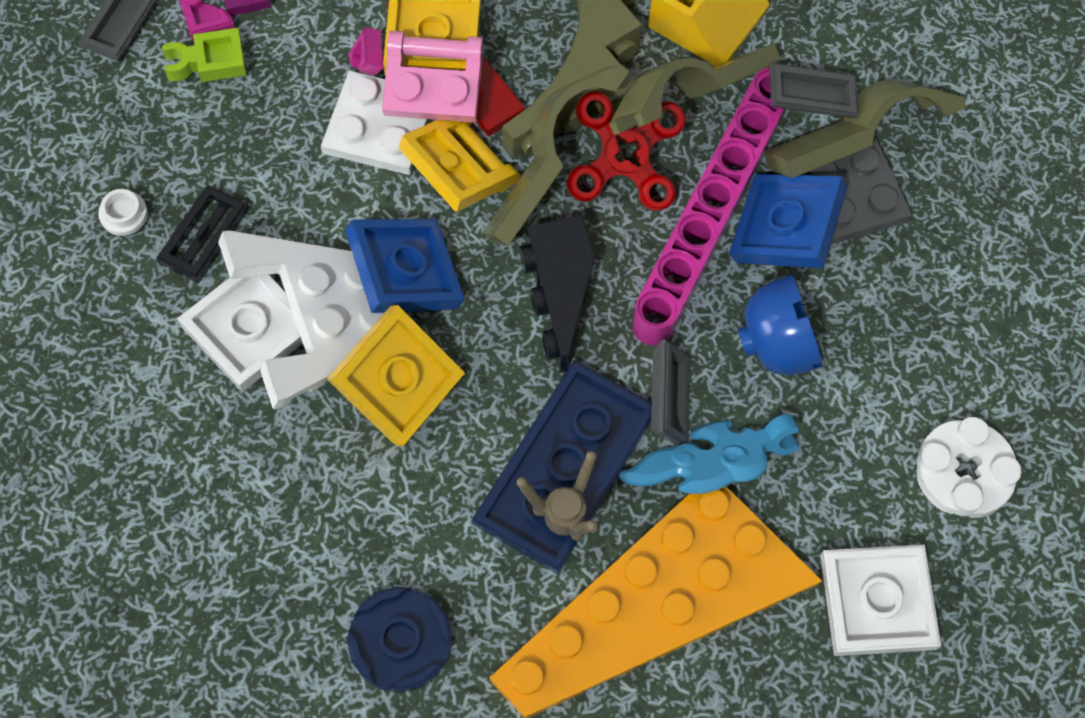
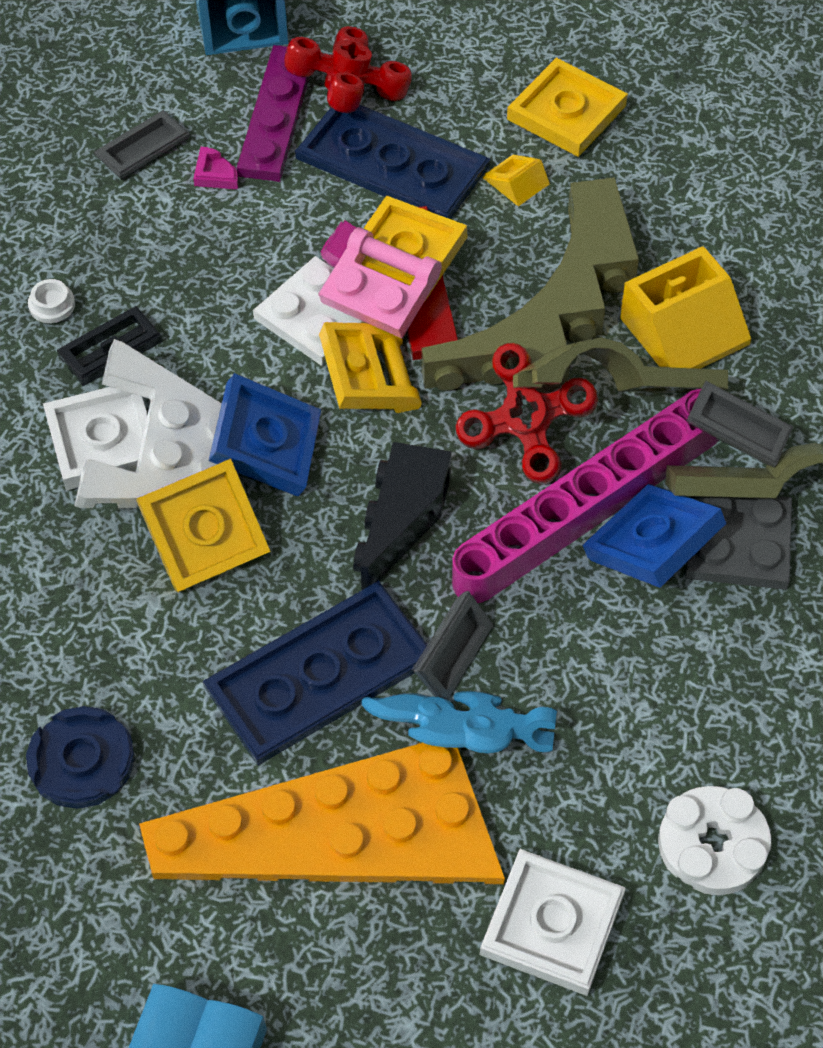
camera: 30 degrees right, 10 degrees down
(213, 56) = (201, 203): lime plate -> none
(546, 163) = (528, 336): olive piece -> none
(565, 506) = (287, 699): dark tan plant -> none
(780, 330) = (586, 626): blue cylinder -> none

